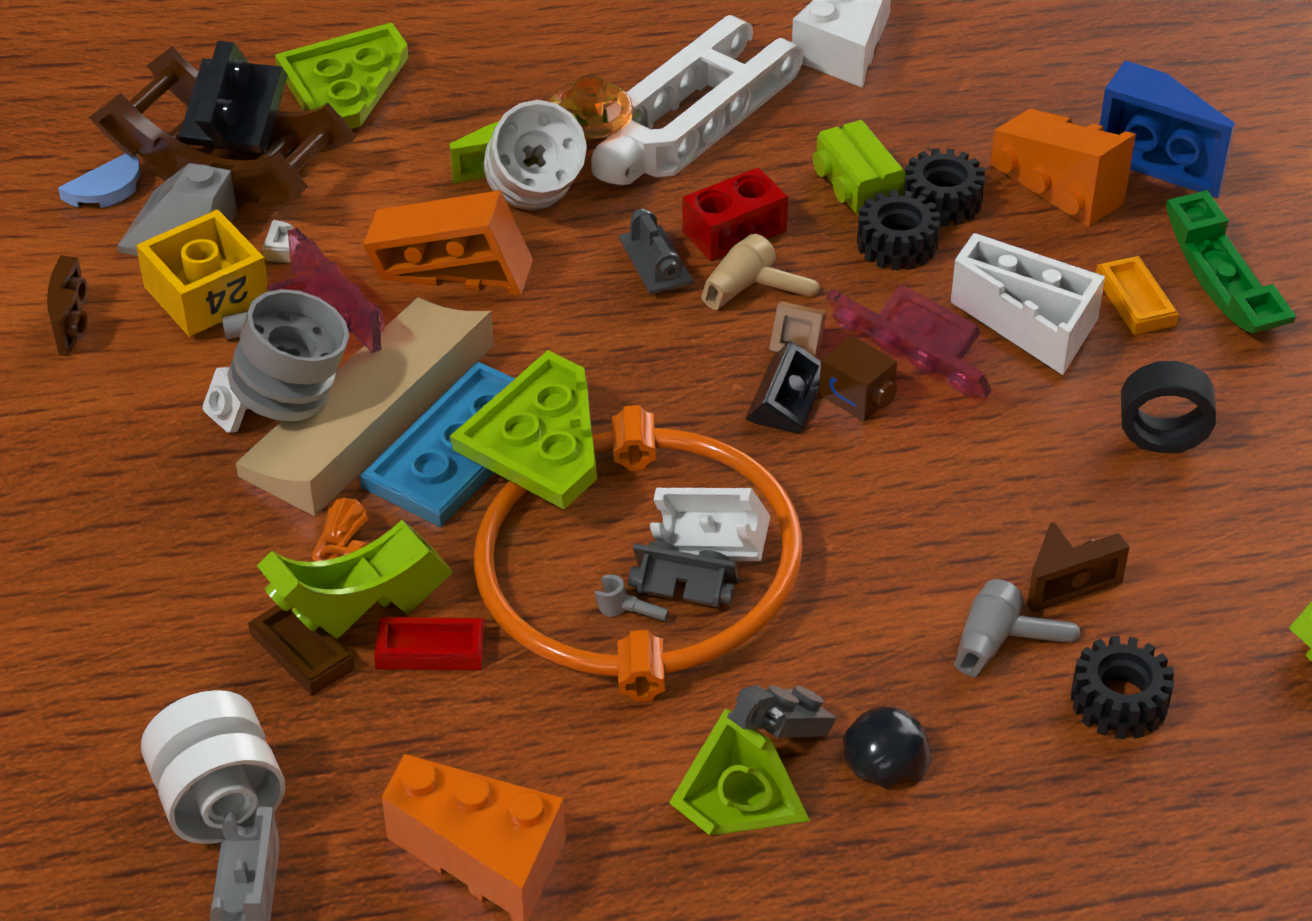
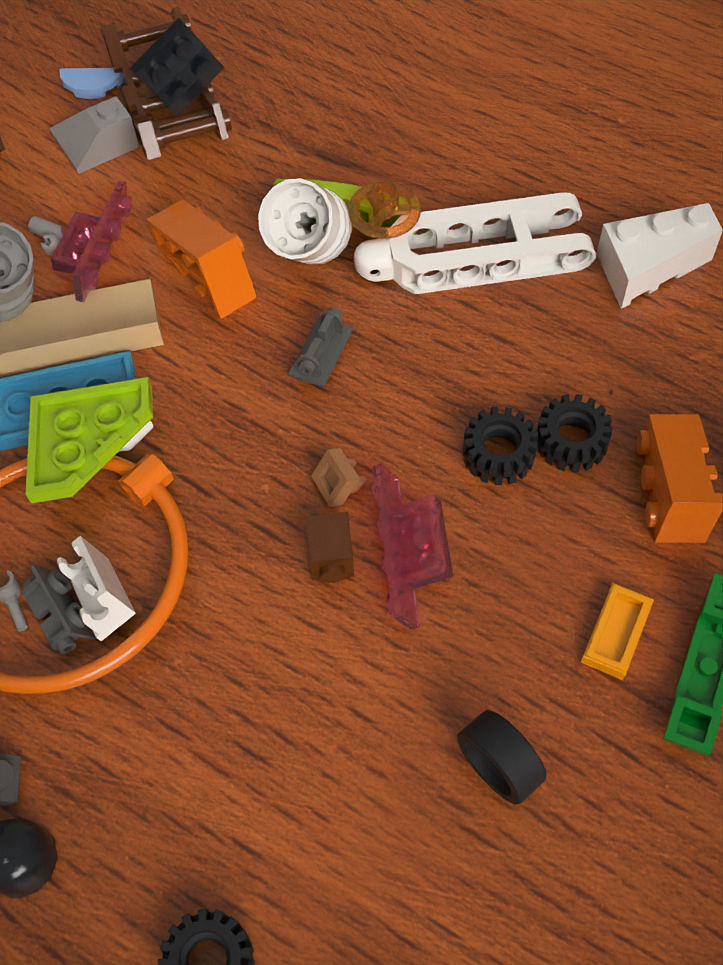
camera: 45 degrees right, 15 degrees up
(202, 271) = (48, 177): yellow brick -> none
(276, 243) = (136, 186): white tile -> none
(346, 71) = (292, 87): lime plate -> none
(733, 210) = (394, 352): red brick -> none
(751, 263) = (365, 400): tan piece -> none
(786, 390) = (284, 518): black slope -> none
(857, 164) = (528, 374): lime brick -> none
(994, 618) = (192, 820): light grey piece -> none
(1028, 298) = (514, 579): white wedge -> none
(1071, 572) = (274, 823): reddish brown slope -> none

